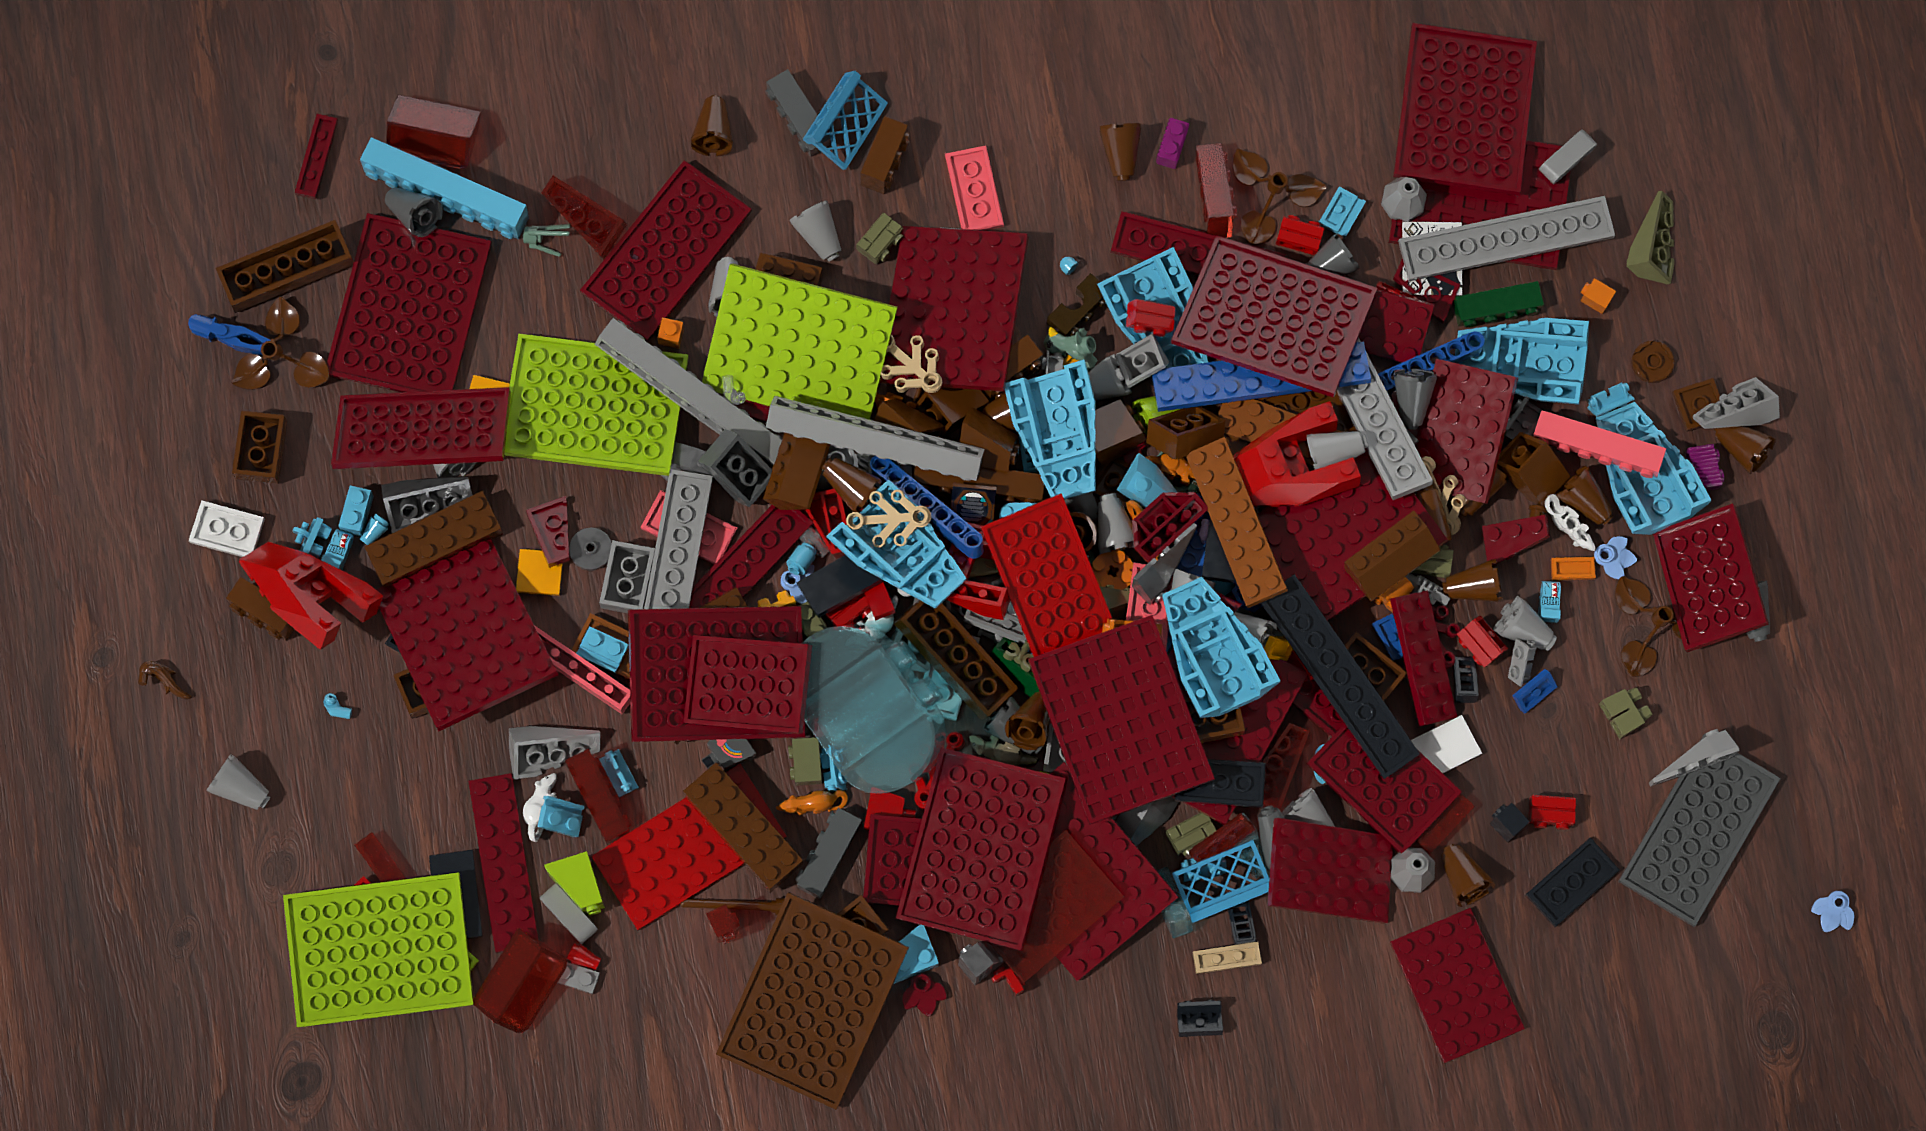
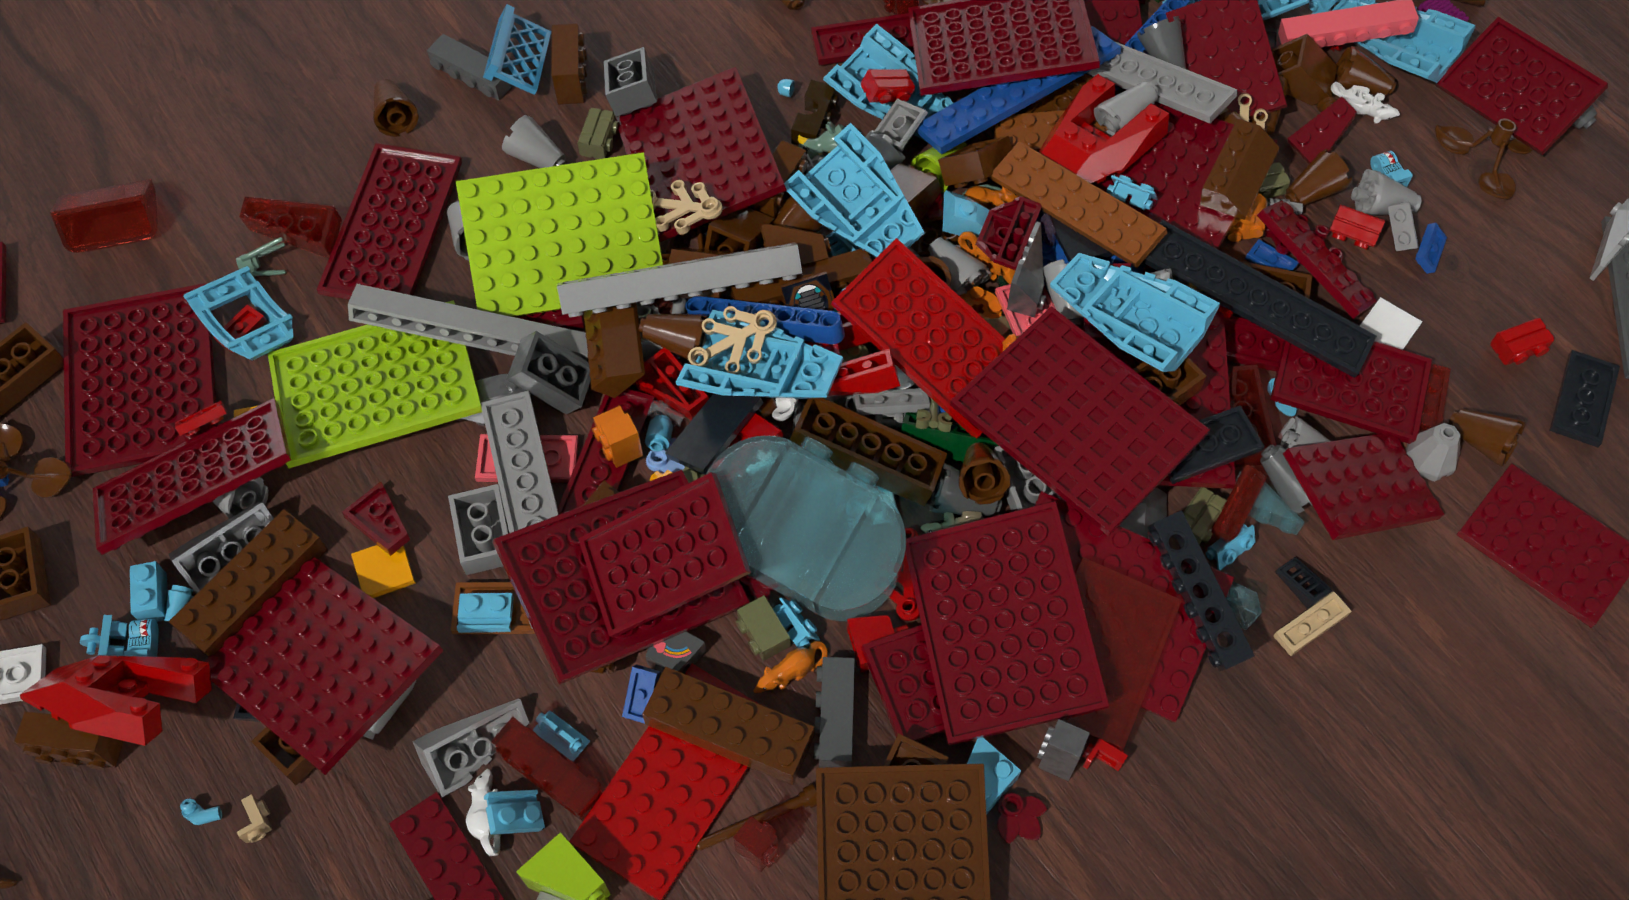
camera: 20 degrees left, 15 degrees down
(378, 728) = (257, 814): none -> tan bracket
(414, 210) = (112, 281): dark grey cone -> none
(445, 376) = (192, 423): none -> red plate
(450, 189) = (135, 253): medium azure brick -> none
(504, 261) = (229, 288): none -> medium azure wedge
(504, 298) = (244, 323): none -> red plate
(586, 674) = (483, 646): coral brick -> none
(590, 560) = (433, 532): flat silver plate -> none
(670, 333) = (427, 285): orange brick -> none
(691, 768) = (640, 688): none -> blue plate
(729, 391) = (511, 308): clear arm -> none
(766, 549) = (617, 436): none -> orange brick
(929, 203) = (629, 82): none -> dark grey brick
(974, 189) = (670, 64): coral tile -> none
(1148, 839) = (1213, 598): none -> black brick
(1199, 1018) = (1325, 698): black bracket -> none
(1231, 898) = (1284, 556): dark azure fence -> none
(1289, 523) = (1140, 194): none -> medium azure hinge
(1465, 693) = (1375, 274): black slope -> none
(1508, 821) = (1495, 364): black brick -> none
(1573, 568) = (1388, 139): orange tile -> none
(1617, 557) = (1418, 115): light blue plate -> none
(1623, 702) = (1532, 231): olive hips -> none

